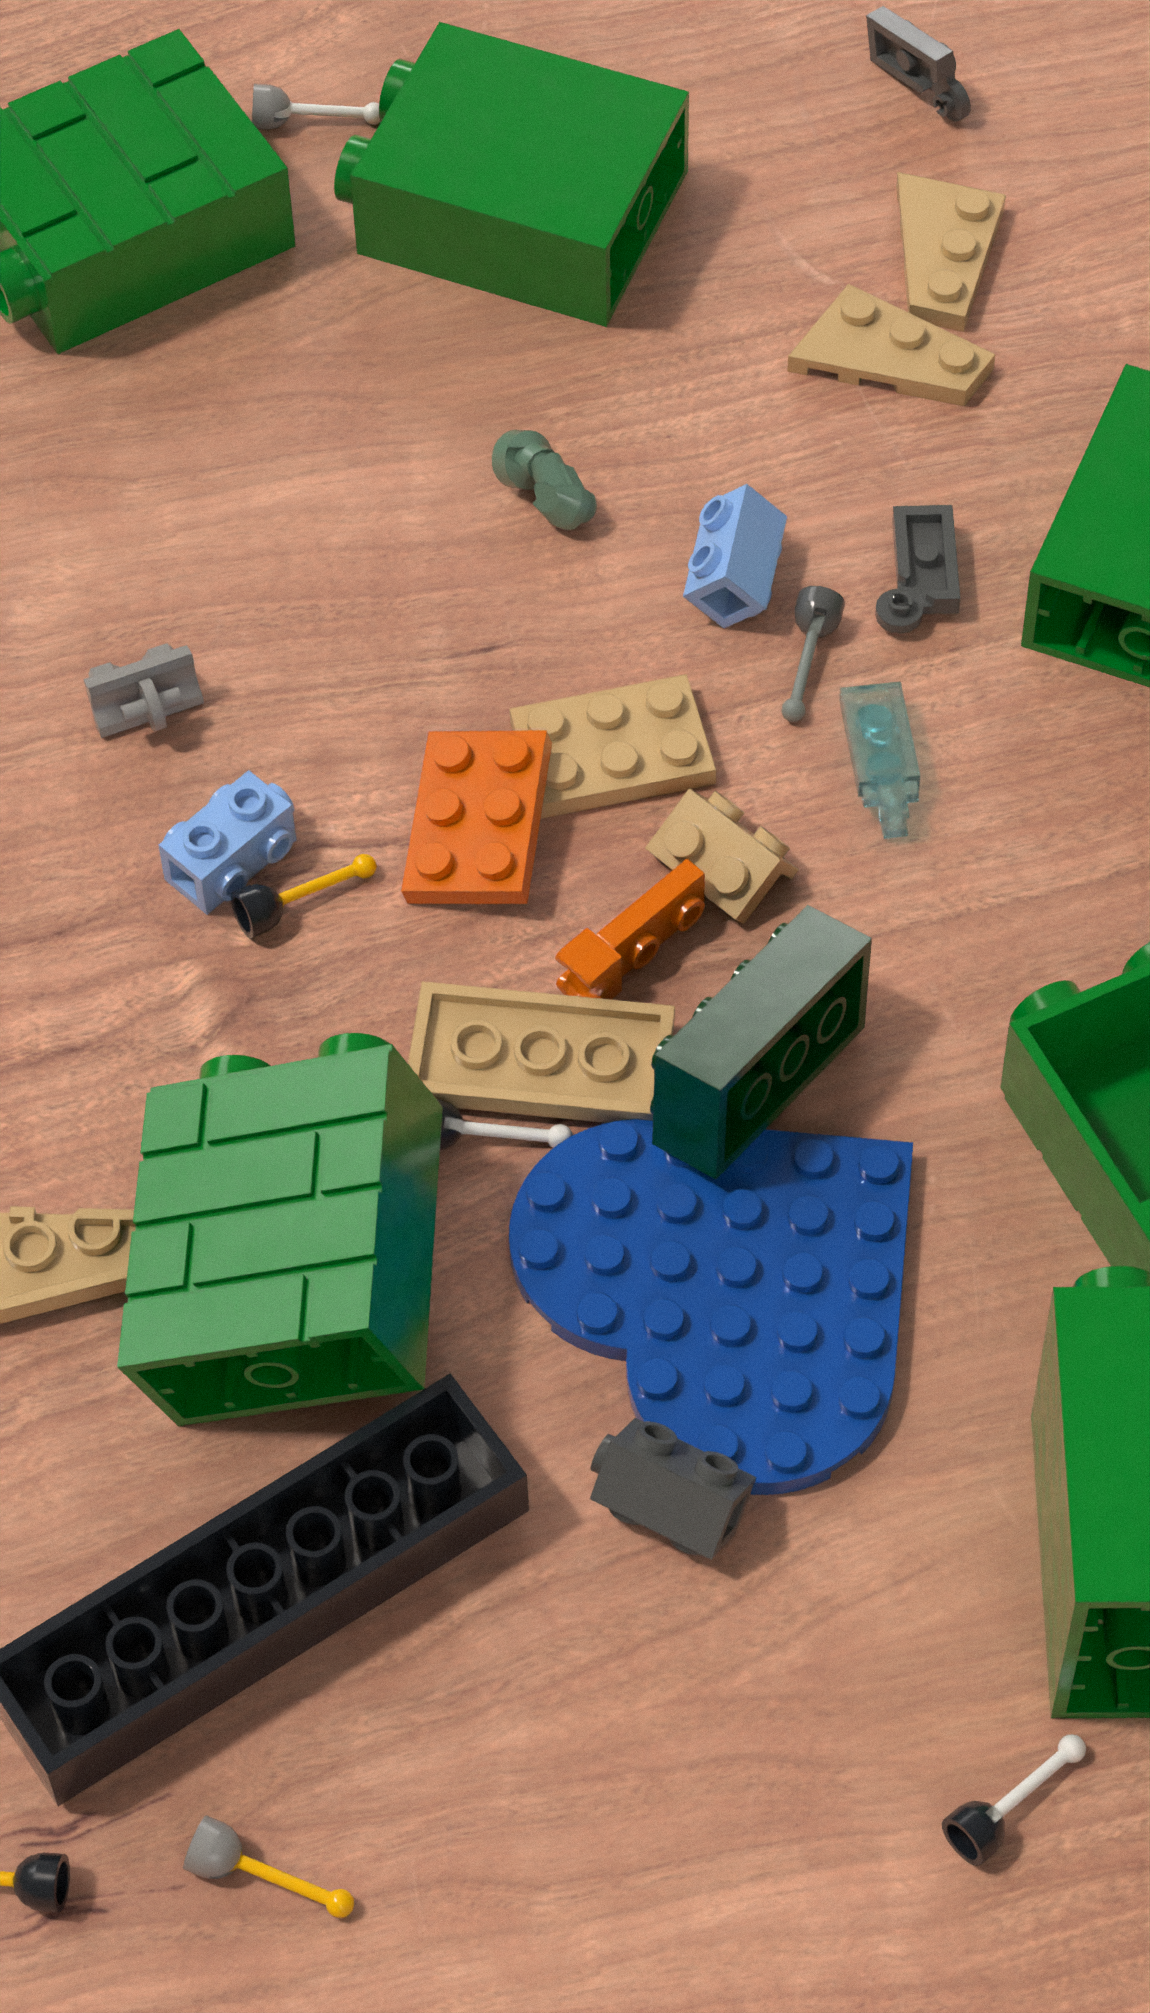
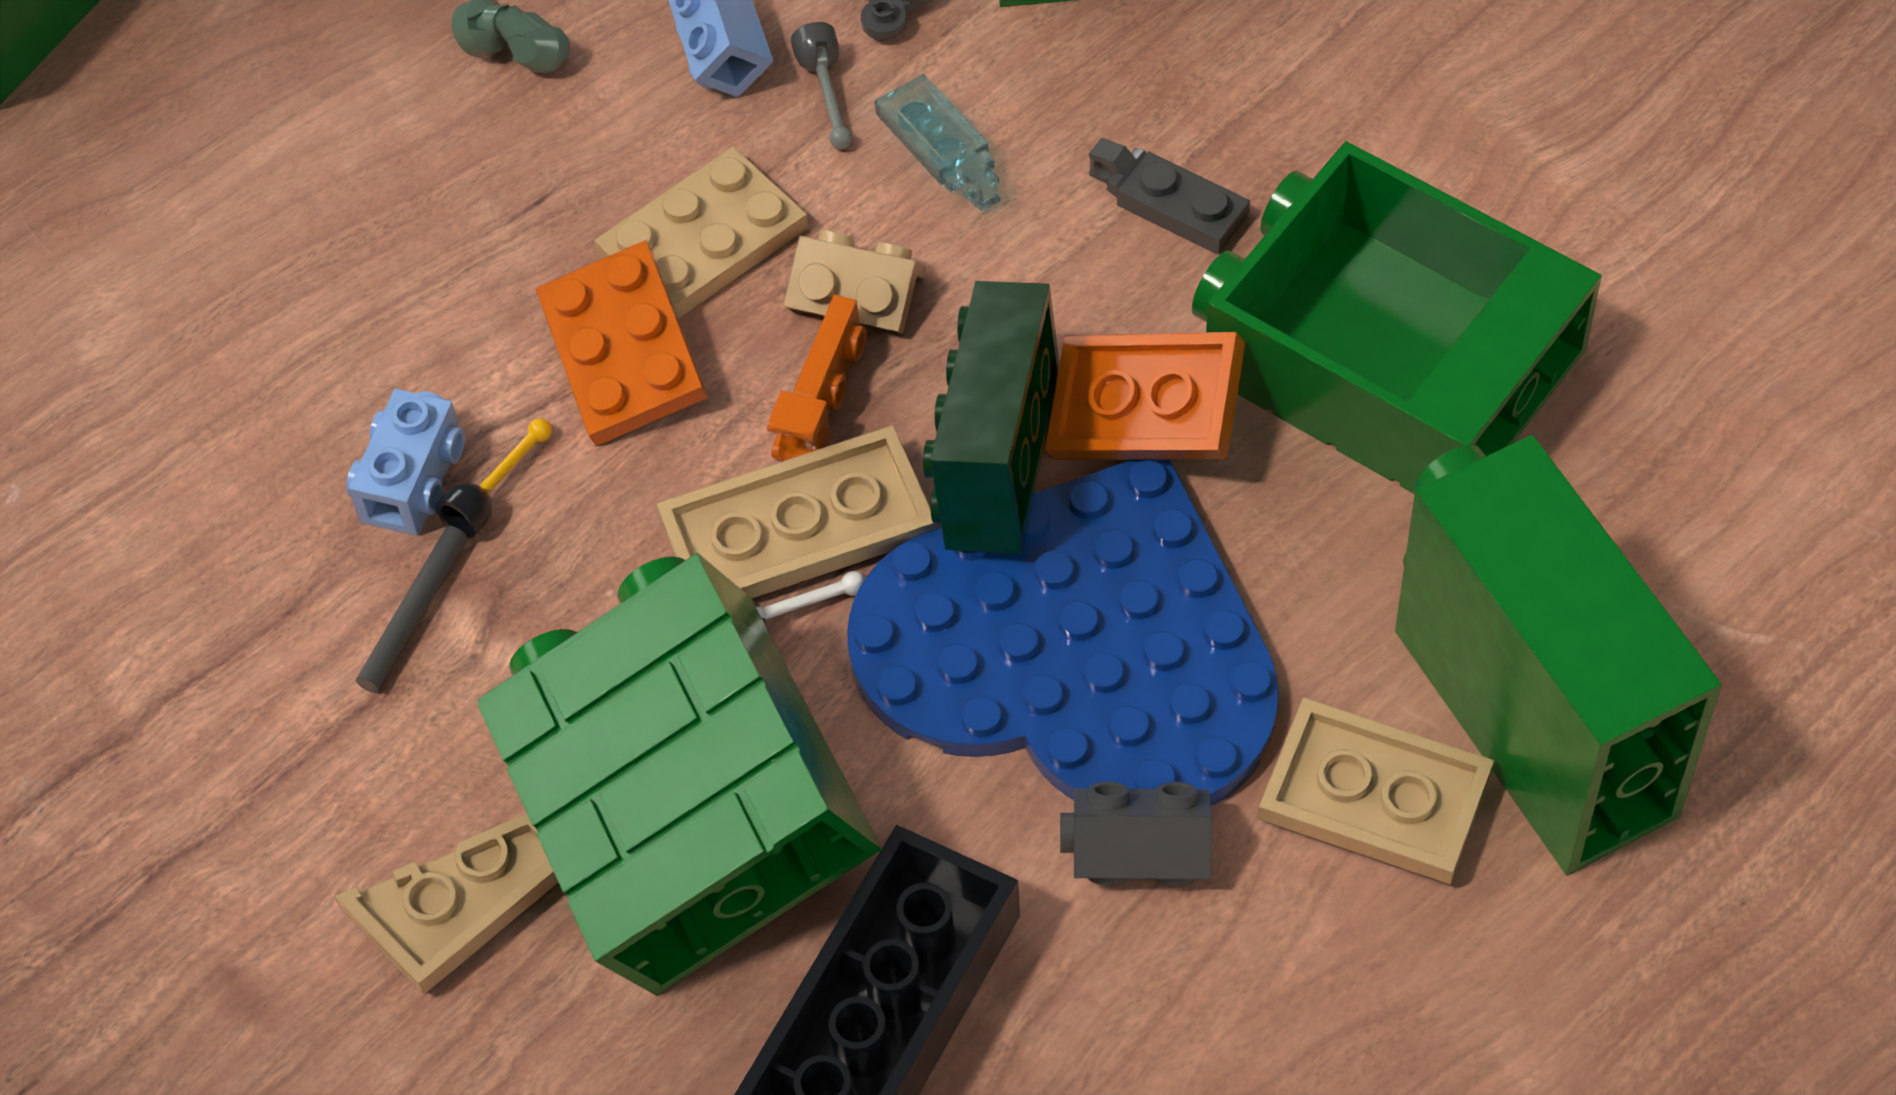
camera: 25 degrees left, 0 degrees up
(143, 690) = (249, 365): light grey hips -> none
(162, 979) = (411, 609): none -> dark grey bar
(916, 1085) = (1145, 396): none -> orange plate
(916, 1553) = (1376, 790): none -> tan plate
(979, 1828) = (1571, 997): hinge -> none
(1068, 902) = (1169, 194): none -> dark grey hinge

